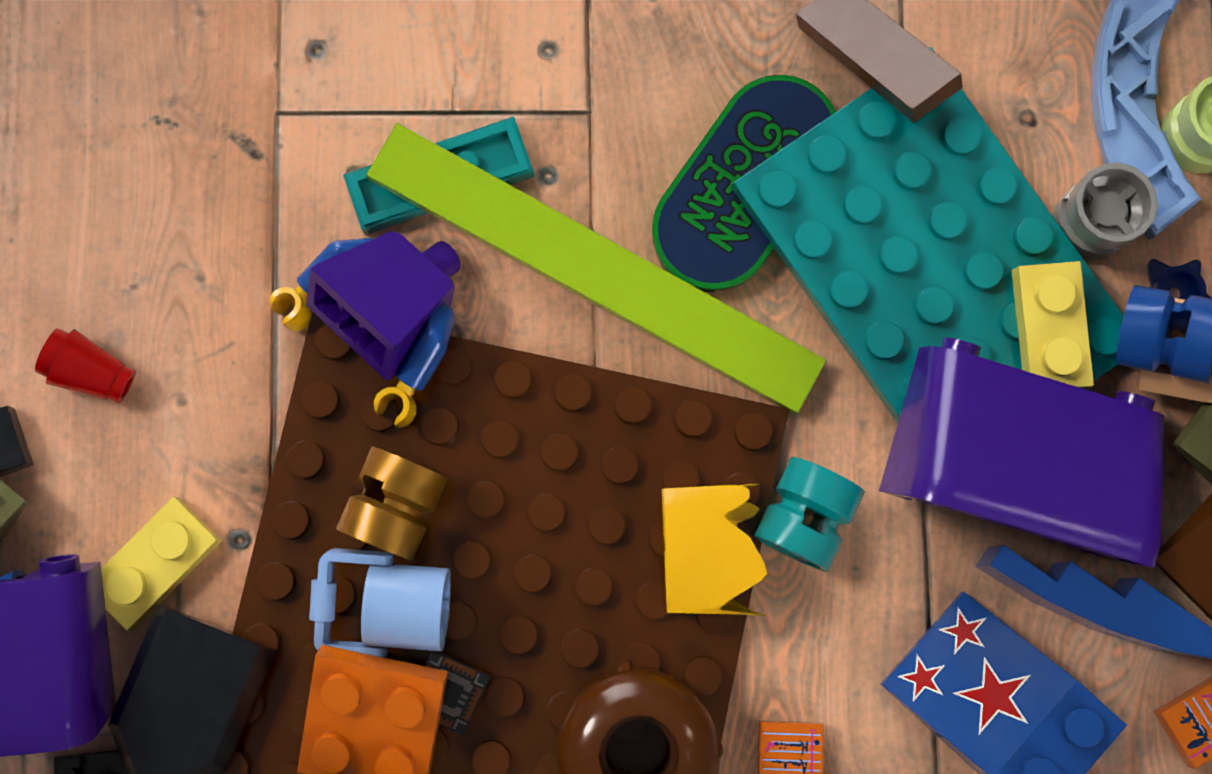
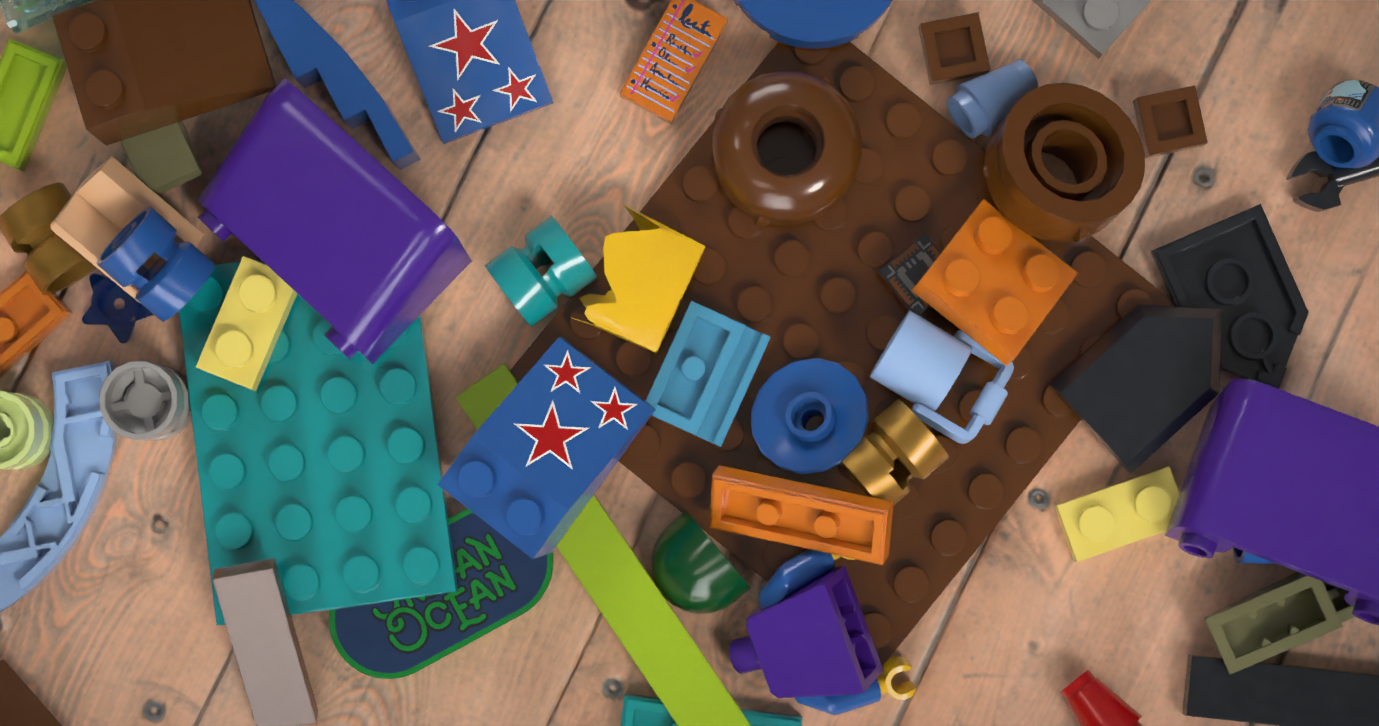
camera: 150 degrees left, 5 degrees up
(449, 405) = (801, 514): none -> orange tile
(514, 508) = (794, 397): none -> blue dish
(528, 309) = (693, 569): none -> dark green helmet
(605, 494) = (706, 373): none -> dark azure plate
(718, 347) = (547, 449): none -> blue slope

